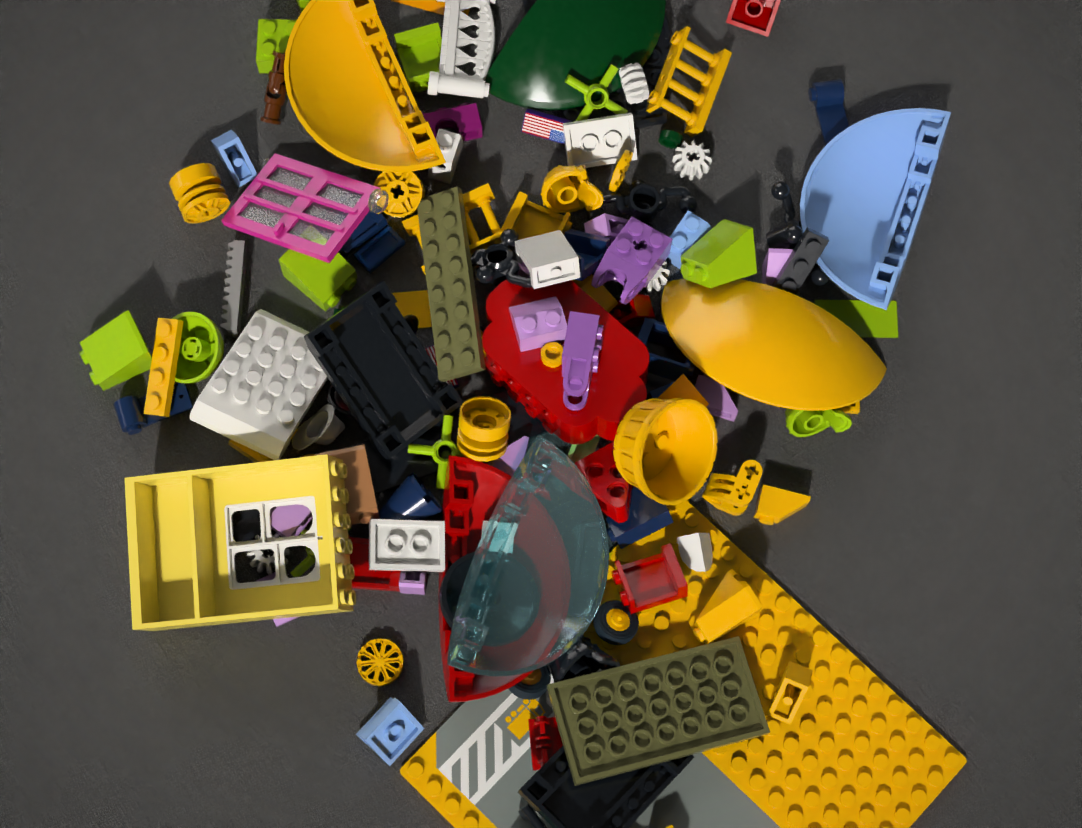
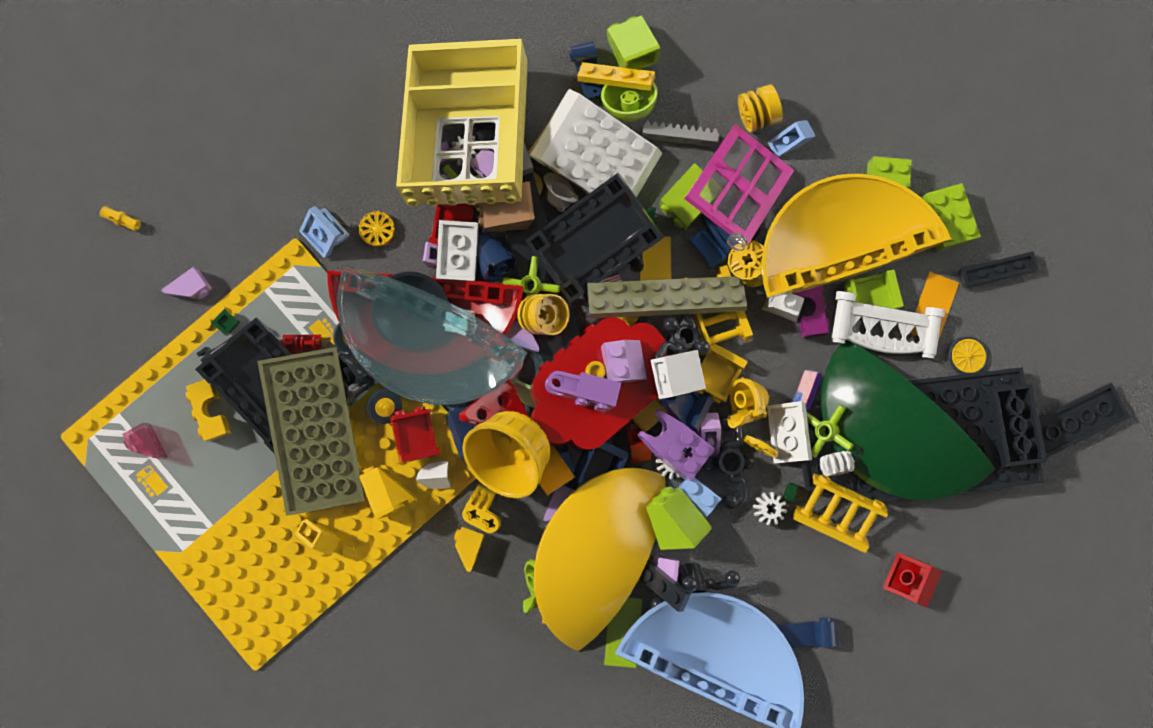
camera: 100 degrees right, 10 degrees up
(275, 86) = (840, 168): reddish brown piece -> none

